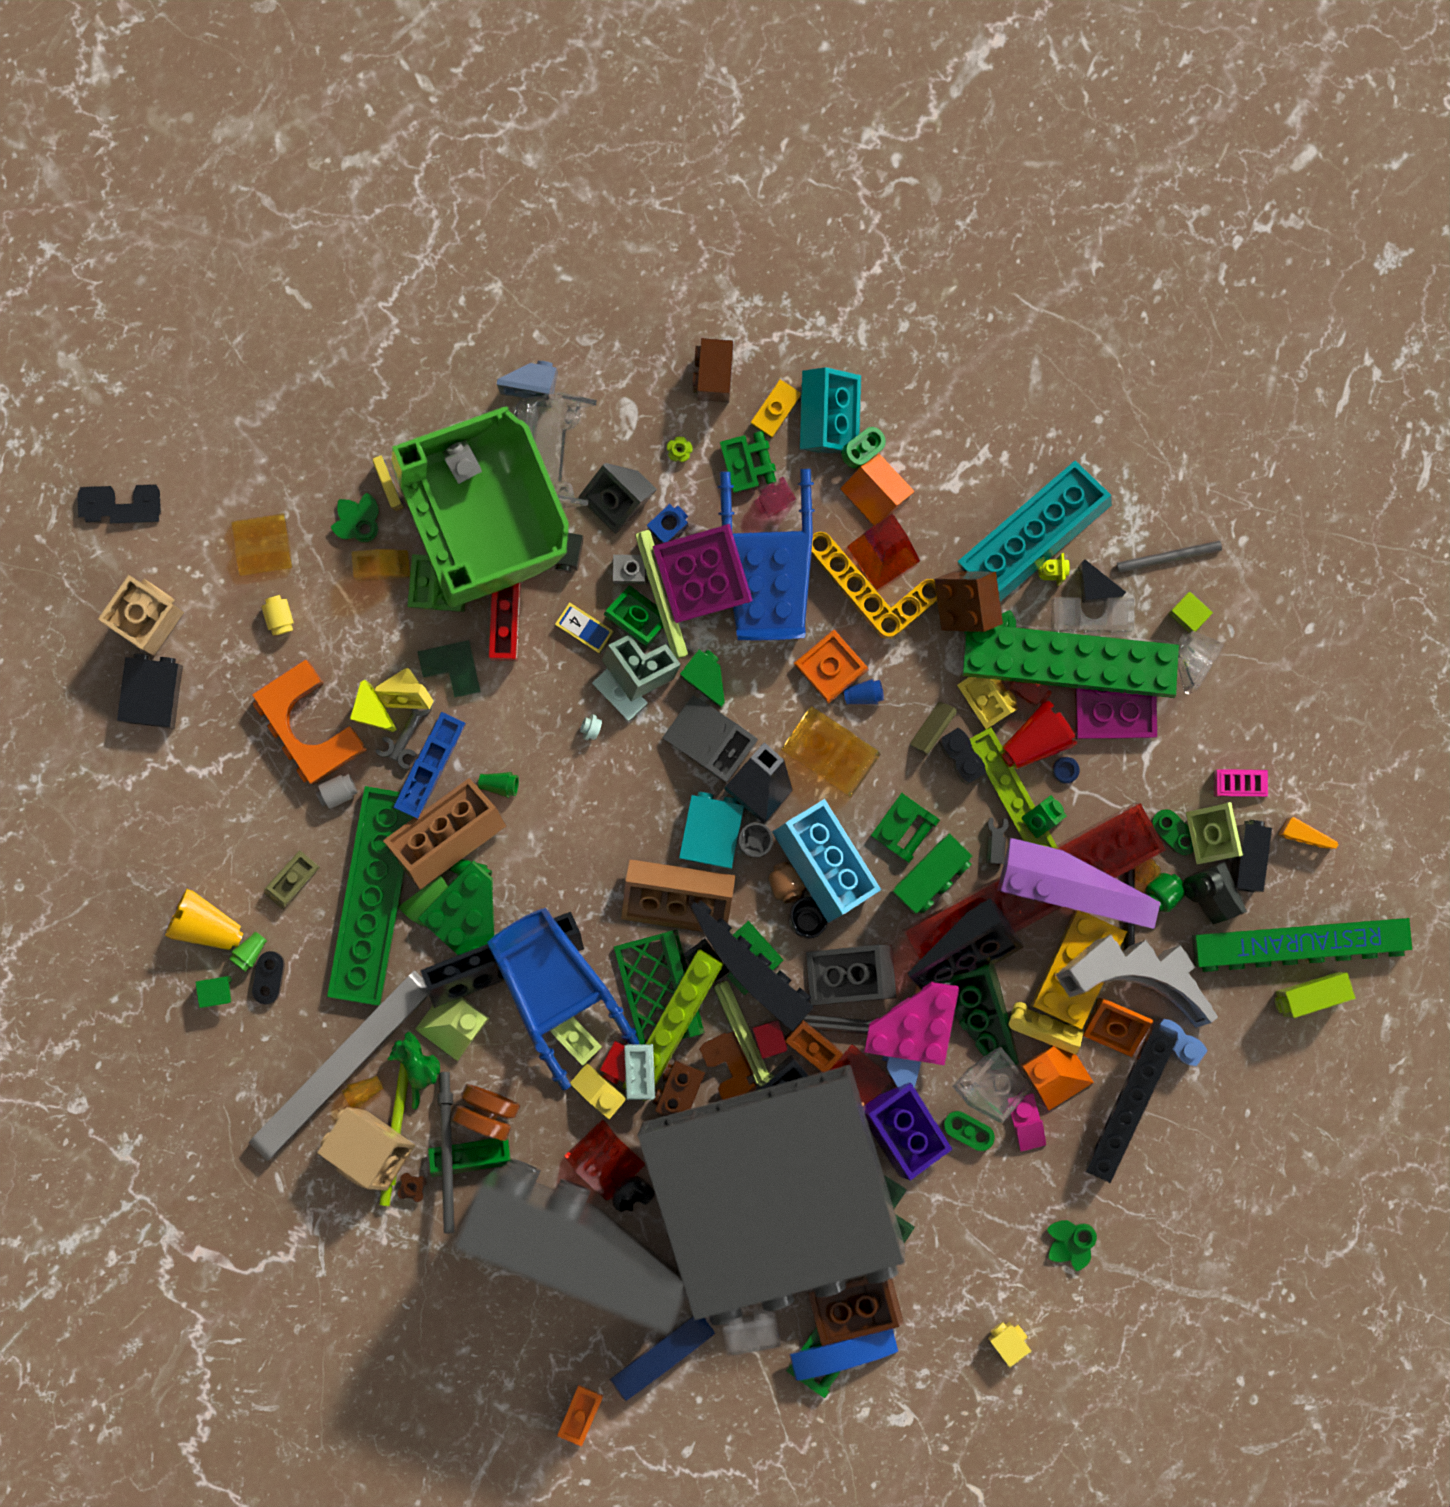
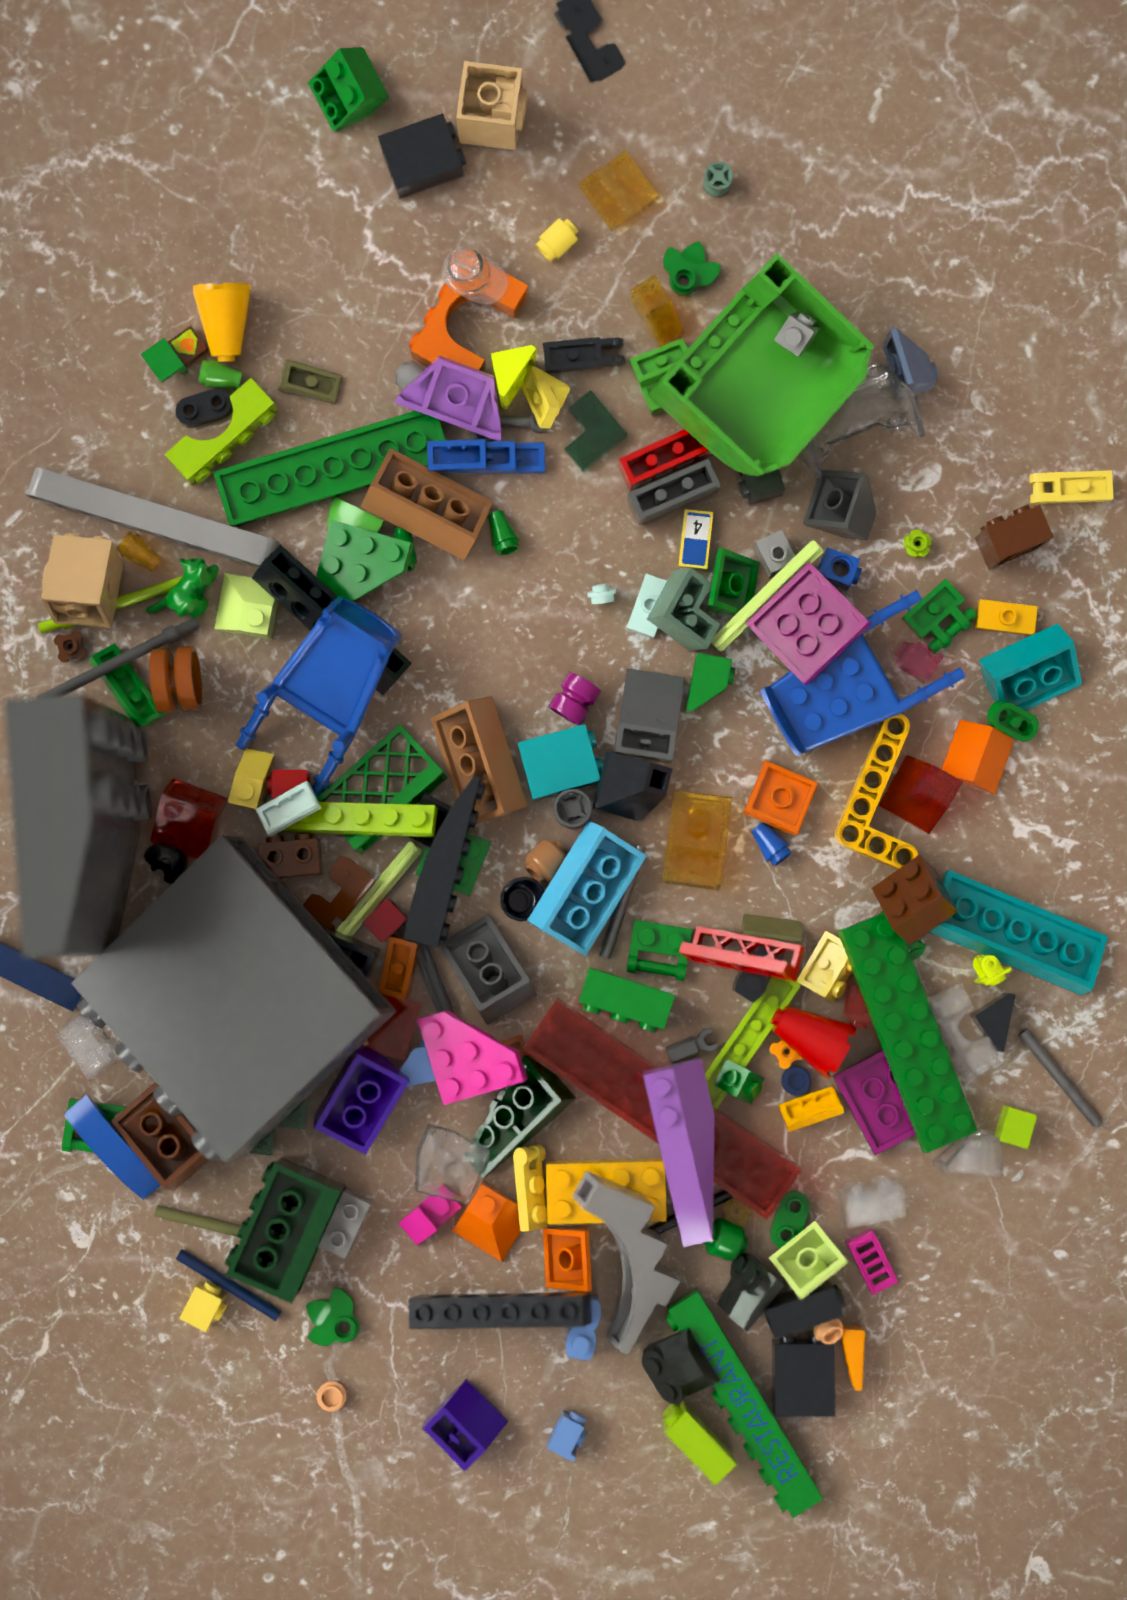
camera: 65 degrees right, 0 degrees up
(61, 725) = (347, 88): none -> green slope
(209, 965) = (188, 346): none -> tile
(275, 699) = (474, 276): none -> clear piece
(290, 939) = (197, 457): none -> lime arch
(293, 453) = (718, 173): none -> sand green wheel
(368, 764) = (456, 396): none -> medium lavender wing
(383, 645) = (581, 354): none -> black hinge
(387, 483) = (739, 279): light yellow tile -> none
(537, 626) = (673, 492): none -> dark grey brick
(576, 1040) = (291, 733): yellowish green plate -> none
(666, 793) = (574, 698): none -> magenta wheel
(697, 301) = (1072, 487): none -> light yellow plate
(862, 848) = (617, 916): none -> flat silver bar
(938, 1314) = (197, 1220): none -> olive bar
(948, 763) = (743, 960): none -> fence
(968, 1130) = (392, 1161): green plate -> none
(974, 939) = (582, 1072): black wedge -> none
(998, 1246) = (298, 1244): none -> dark green brick
(999, 1193) = (345, 1223): none -> light grey brick
(1002, 1315) = (228, 1285): none -> dark blue bar
(1044, 770) = (784, 1059): none -> light orange plate
(1094, 769) = (811, 1108): none -> yellow plate
(1133, 1275) = (331, 1396): none -> light nougat plate
(1193, 758) = (872, 1202): none -> clear slope
(1209, 1177) = (465, 1424): none -> dark purple slope
(1247, 981) = (678, 1366): none -> pearl dark grey slope
(1258, 1098) = (567, 1434): none -> medium blue brick
(1279, 845) = (829, 1332): none -> light nougat plate
(1305, 884) = (803, 1377): none -> black brick

